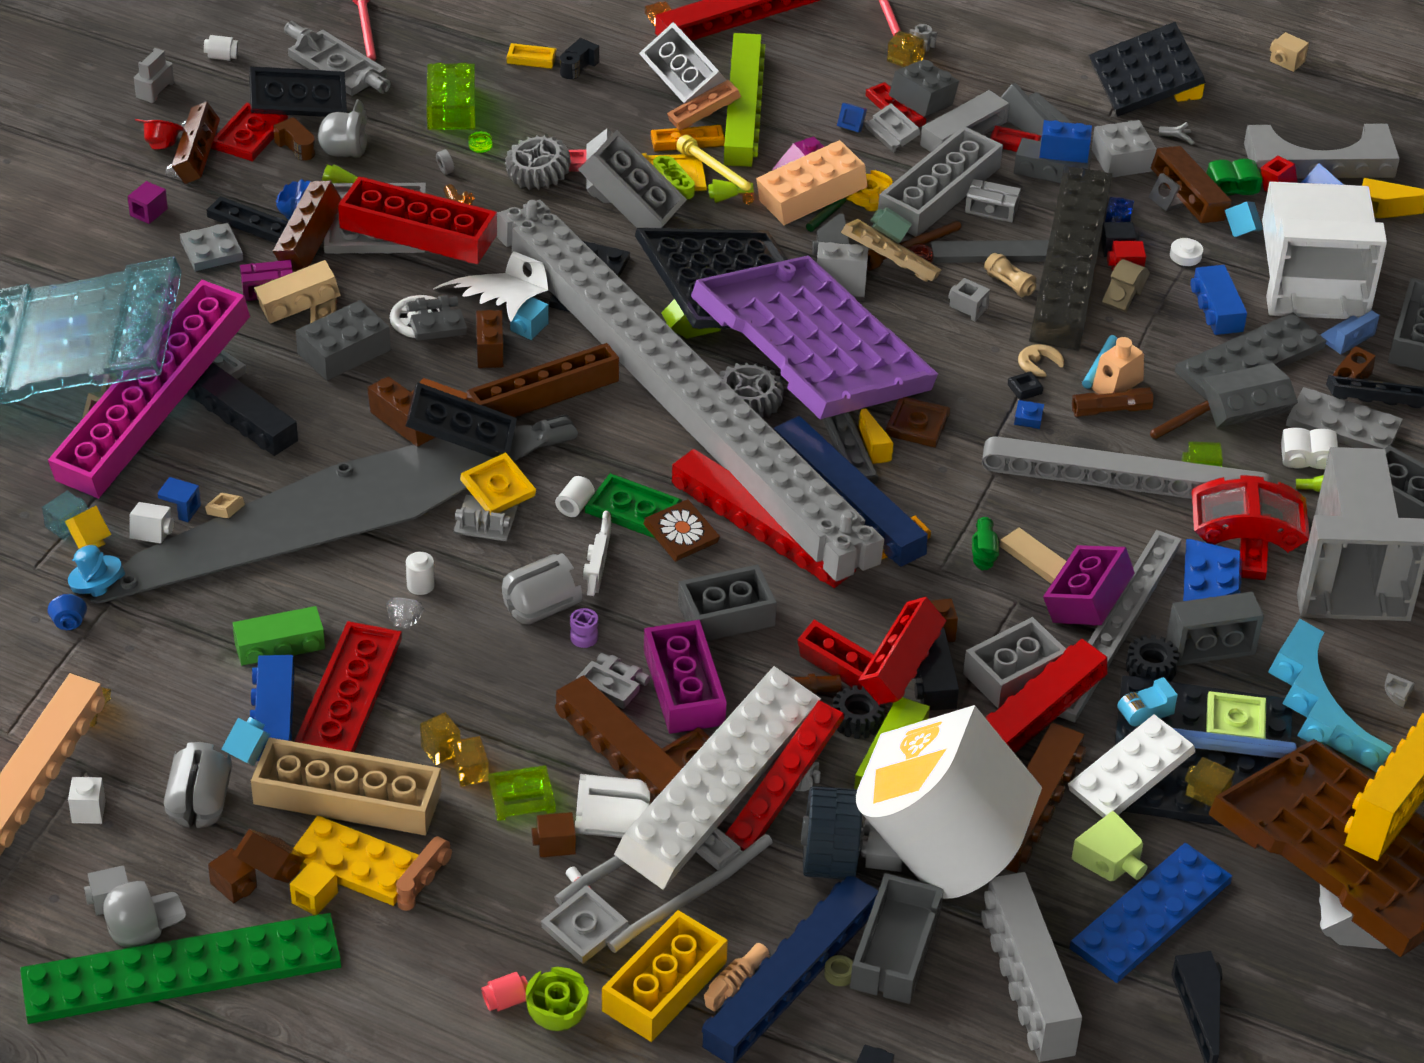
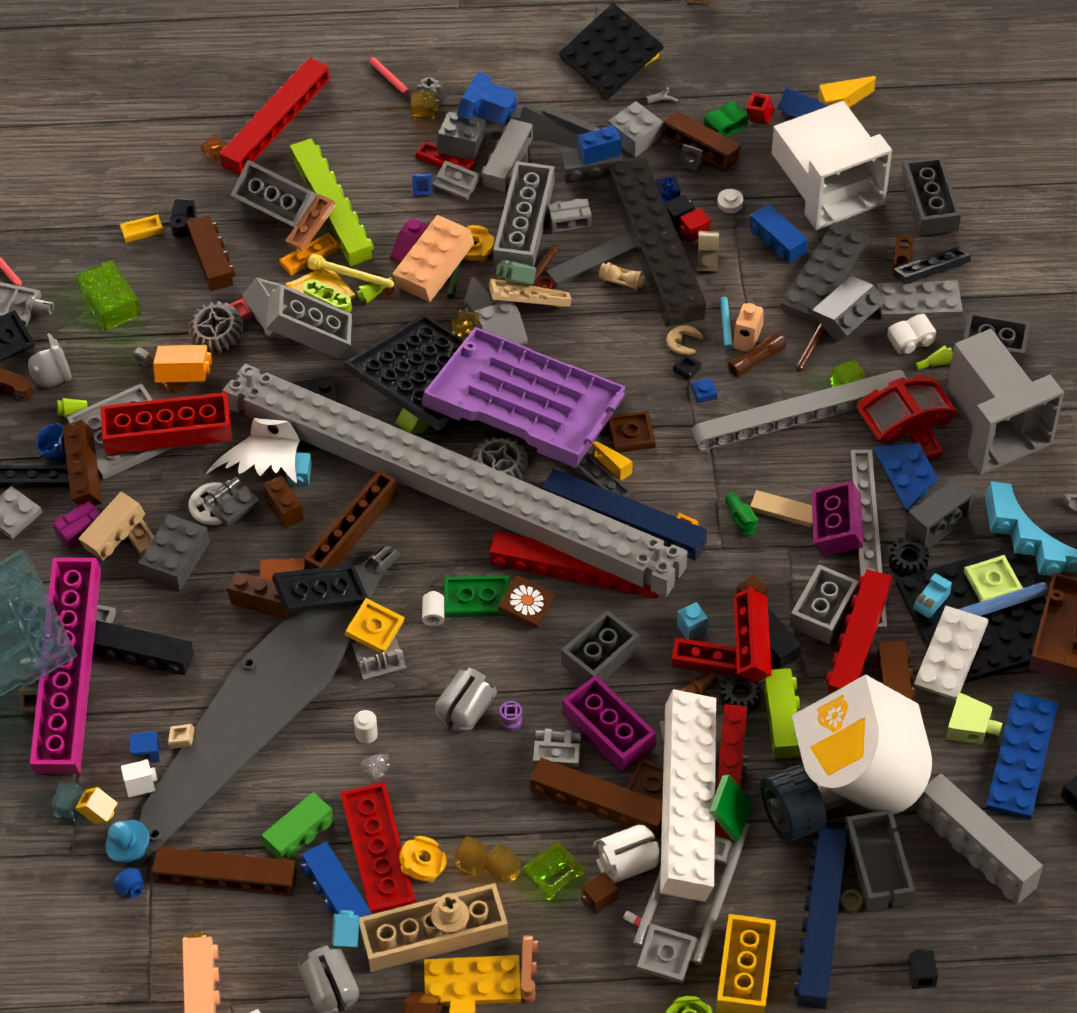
camera: 25 degrees left, 10 degrees up
(173, 644) = (224, 871): none -> reddish brown brick
(365, 770) = (450, 914): none -> tan gear
(379, 730) = (418, 869): none -> yellow plate
(477, 178) = (182, 363): none -> light orange brick
(480, 142) = (154, 325): clear neon green tile -> none
(583, 98) = (210, 253): none -> reddish brown brick
(597, 556) = (481, 651): white plate -> none
(731, 978) = (789, 941): light nougat hinge -> none
(756, 806) = (730, 807): none -> green tile
(803, 246) = (465, 323): none -> clear yellow bracket
(852, 619) = (692, 621): none -> medium azure brick
(969, 298) = (605, 310): light grey brick -> none
(972, 64) = (487, 101): none -> blue brick
(1011, 138) = (548, 152): red tile -> none
(1208, 780) = (1008, 640): clear yellow brick -> none
(1243, 219) = (754, 155): medium azure panel -> none
(1351, 332) = (880, 221): medium blue panel -> none
(1368, 158) = (810, 63): light grey arch -> none

